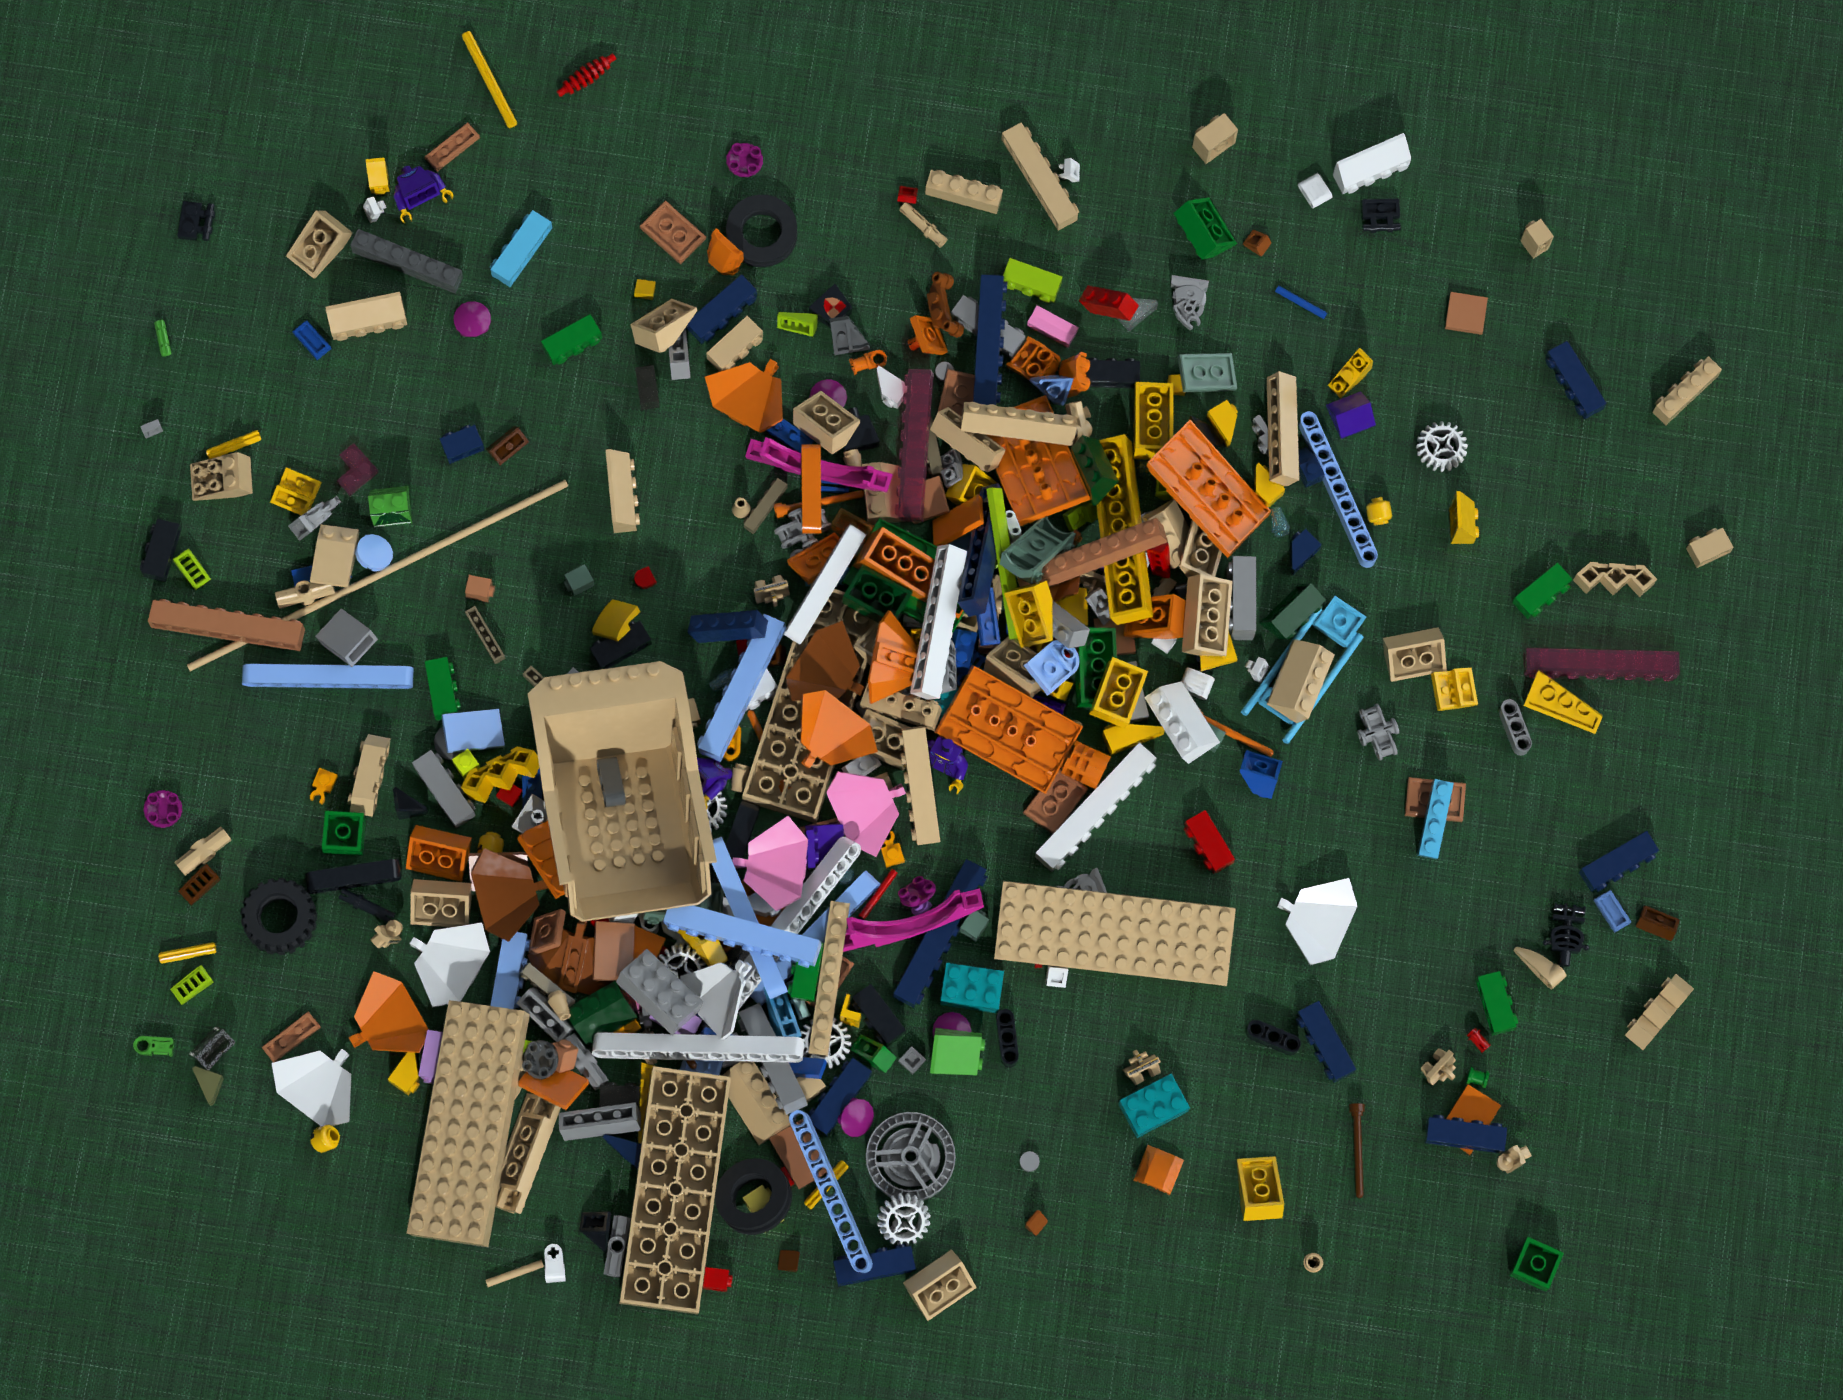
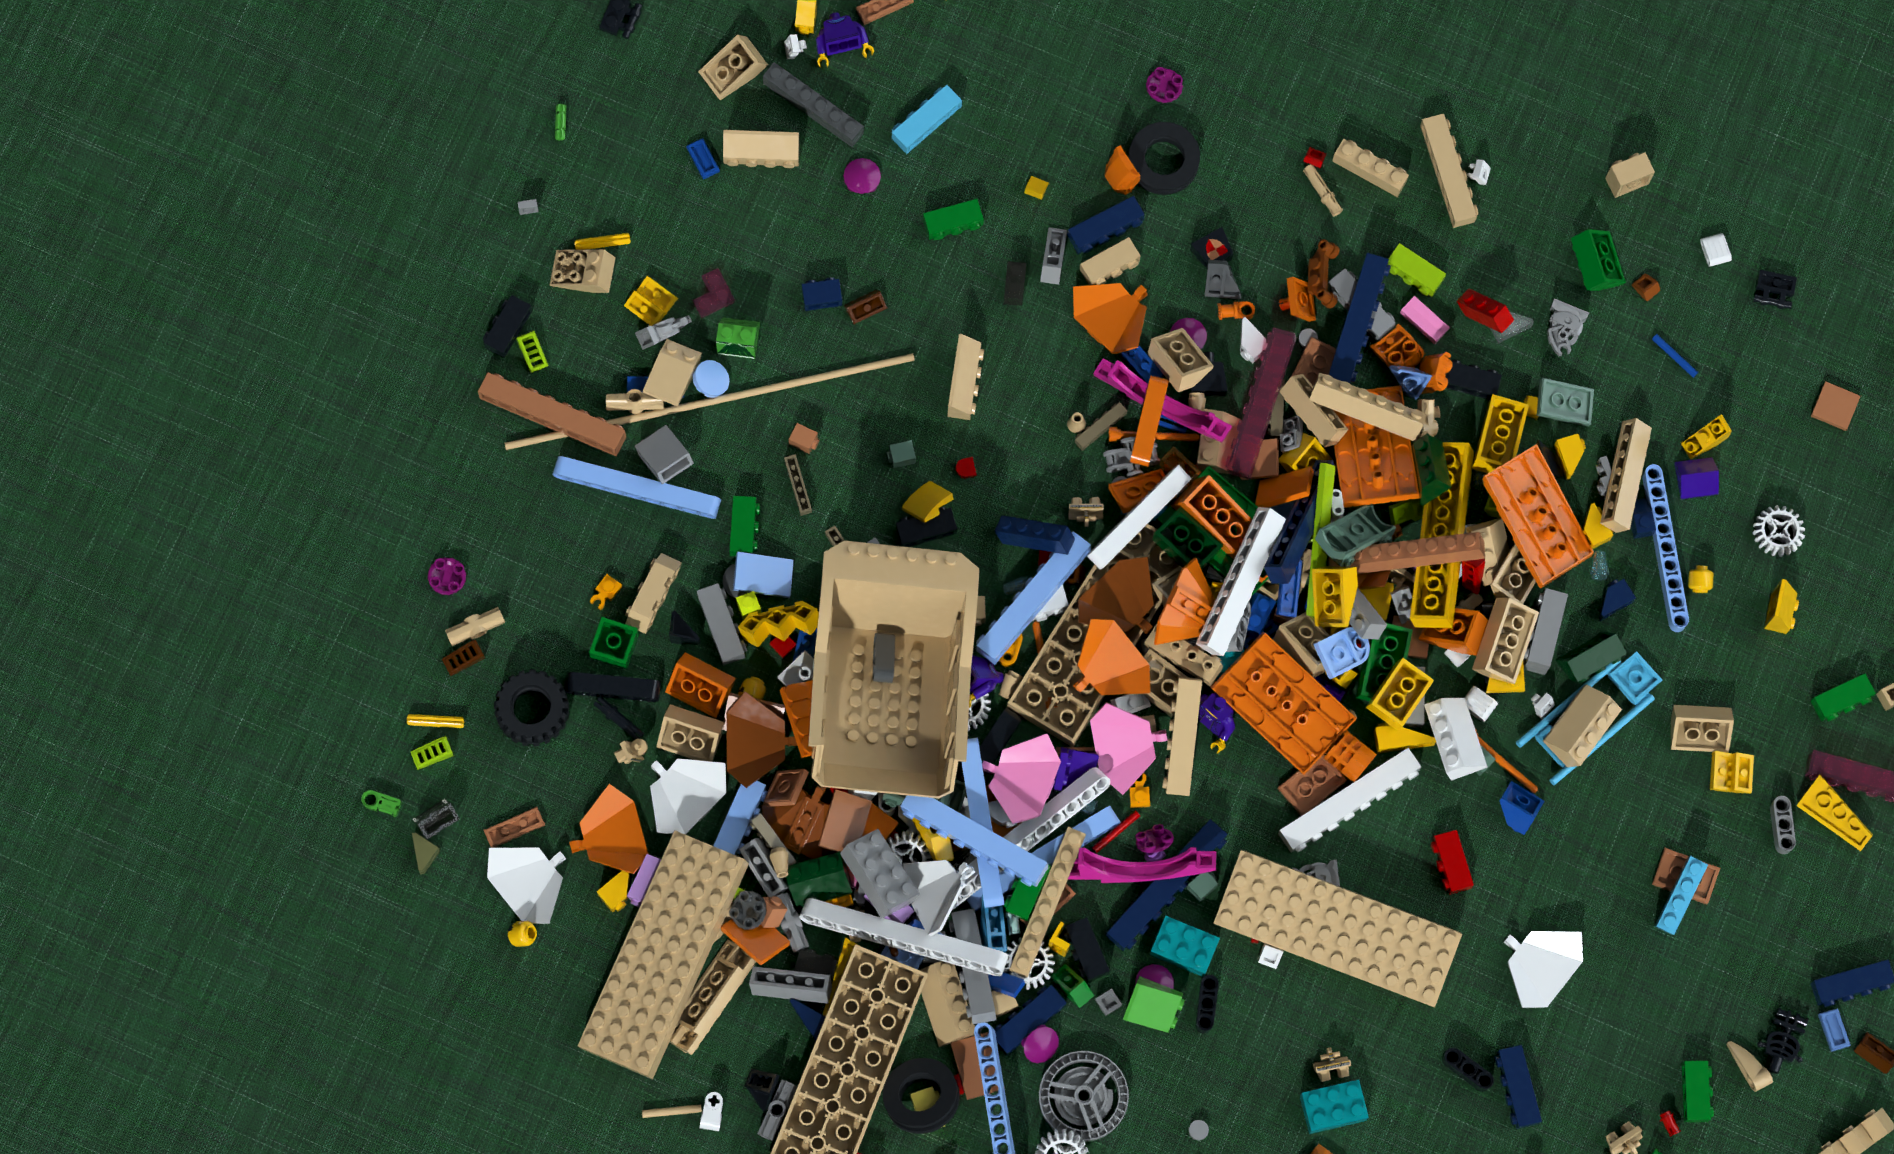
camera: 15 degrees right, 0 degrees up
(662, 325) = (1045, 226): tan slope -> none
(673, 232) = (1077, 138): nougat tile -> none
(804, 322) = (1182, 259): lime slope -> none
(815, 1196) = (981, 1111): yellow axle -> none
(1372, 164) = (1779, 237): white slope -> none
(1378, 732) = (1646, 795): light grey axle -> none

